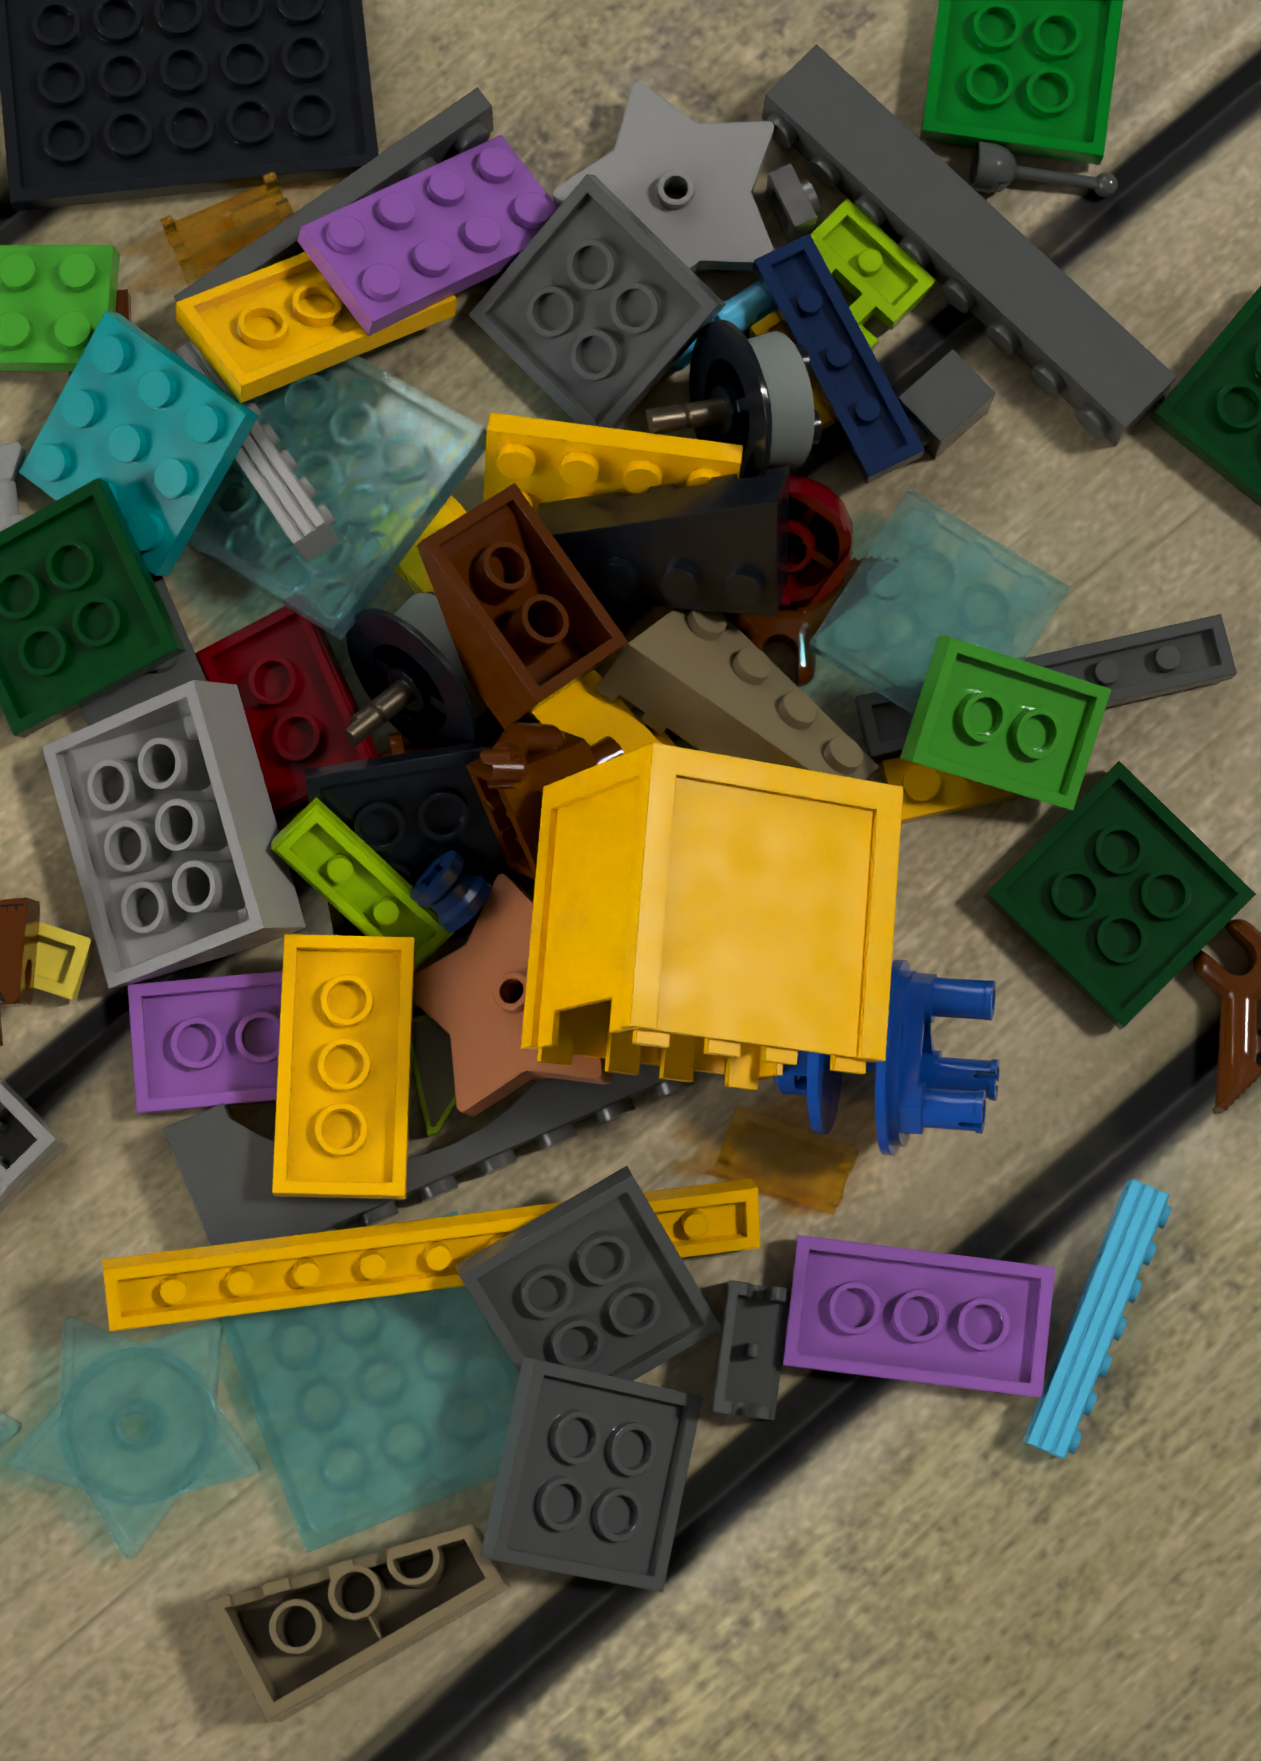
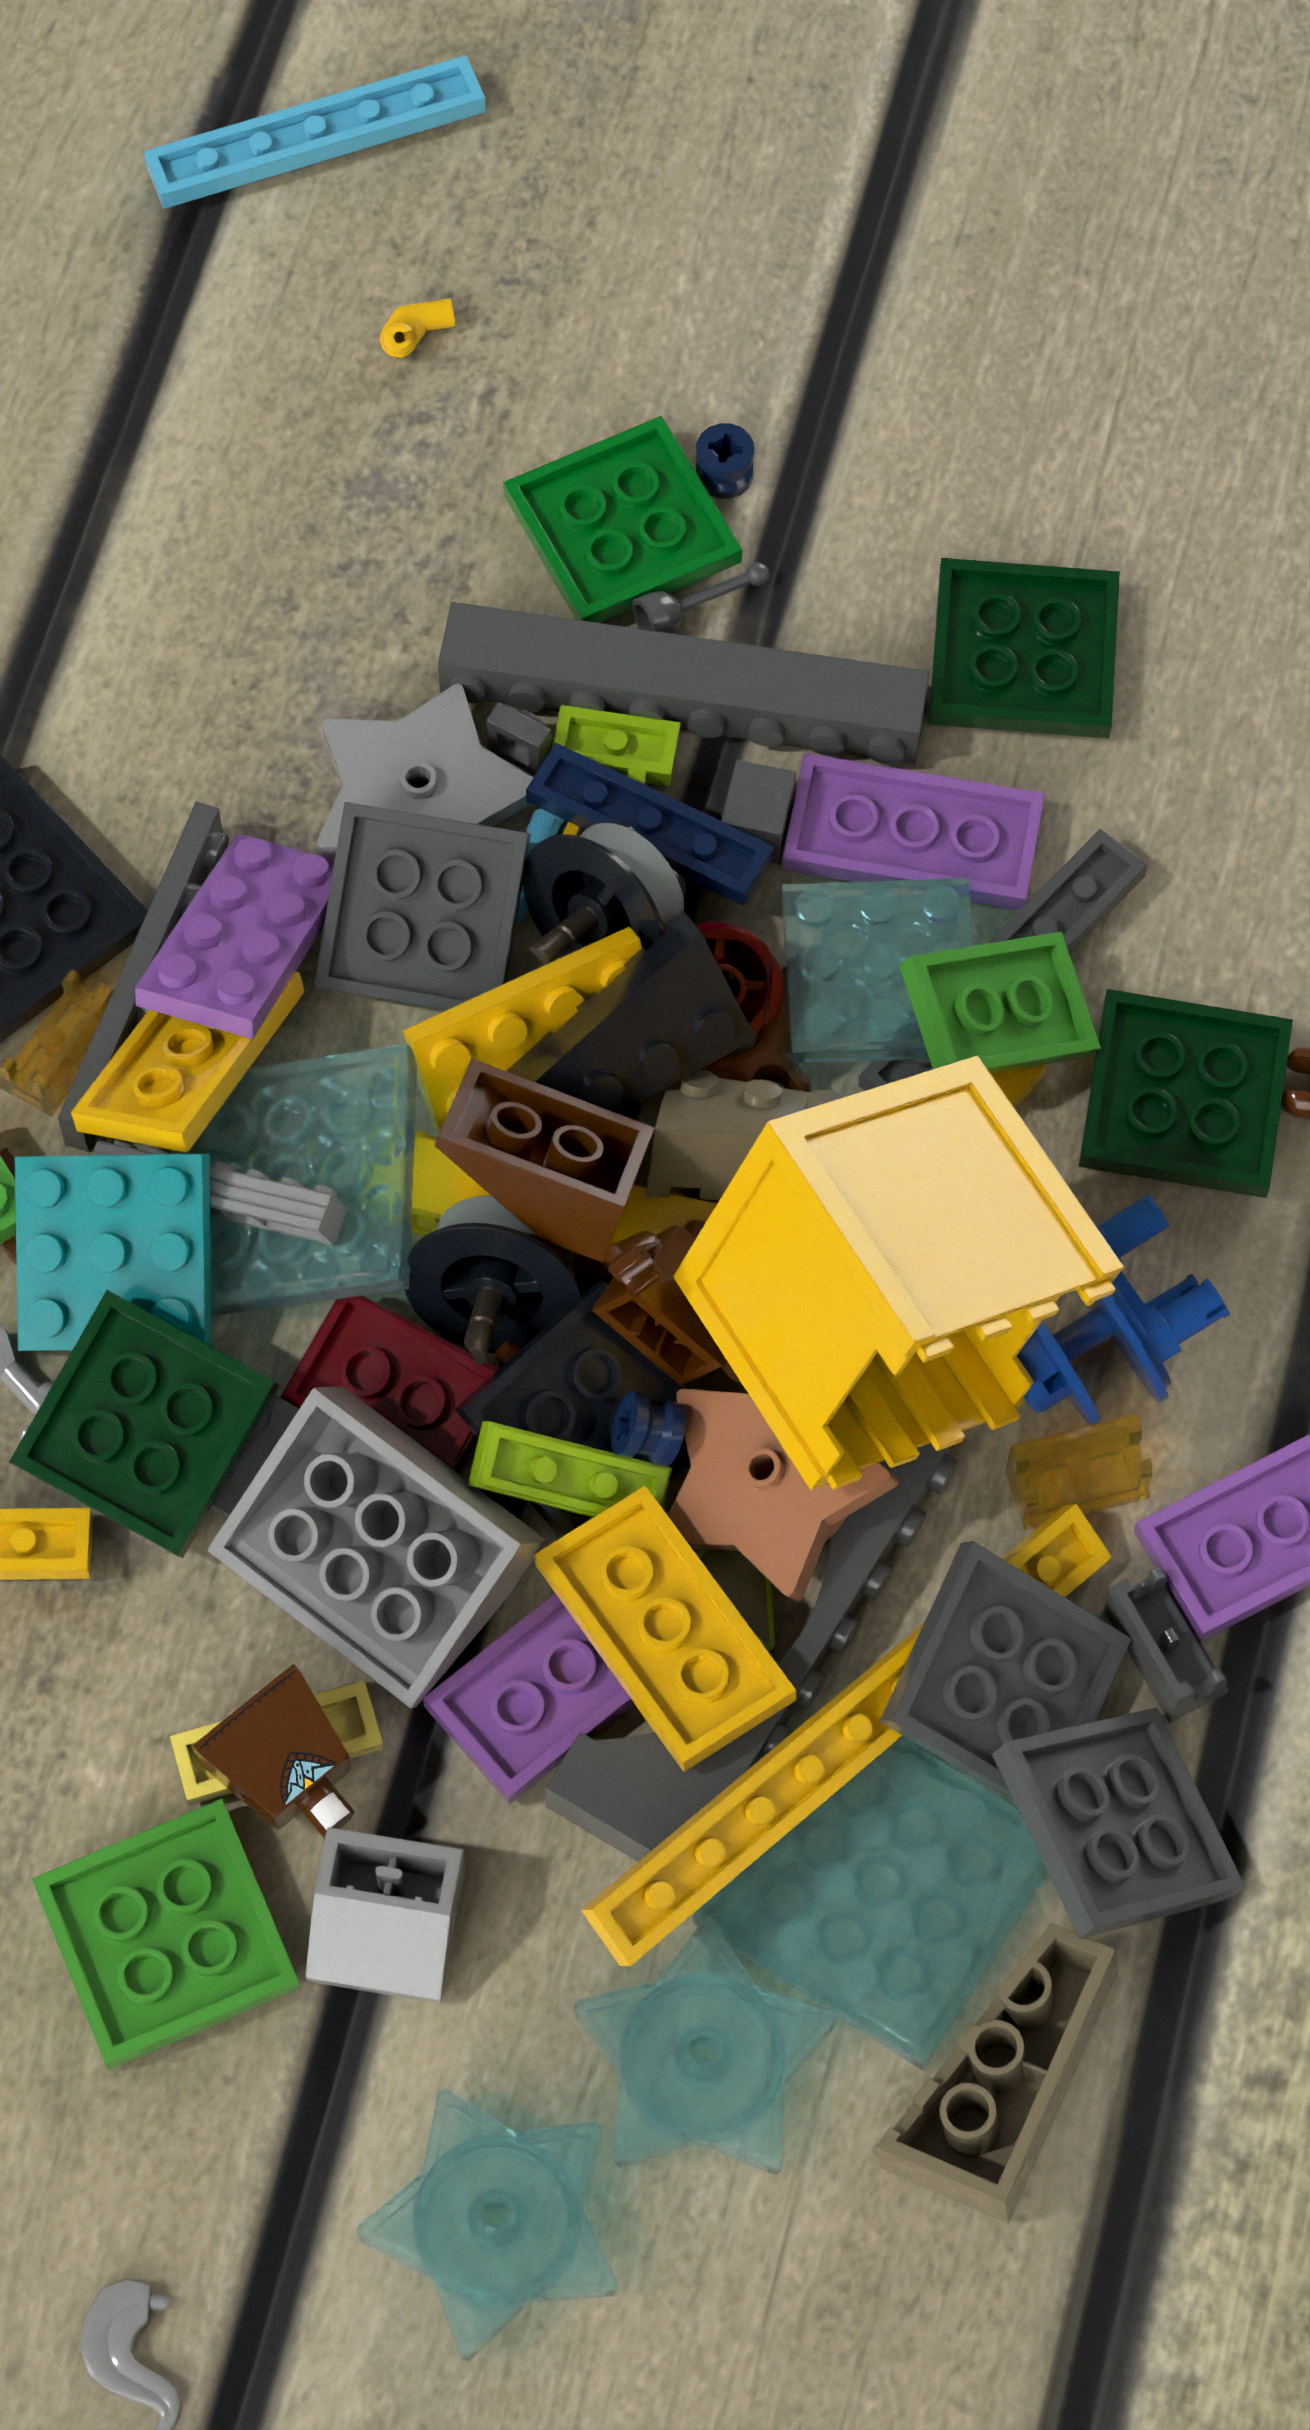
camera: 30 degrees left, 15 degrees down
(1063, 508) = (912, 825): none -> medium lavender plate
(1148, 76) = (735, 471): none -> dark blue wheel

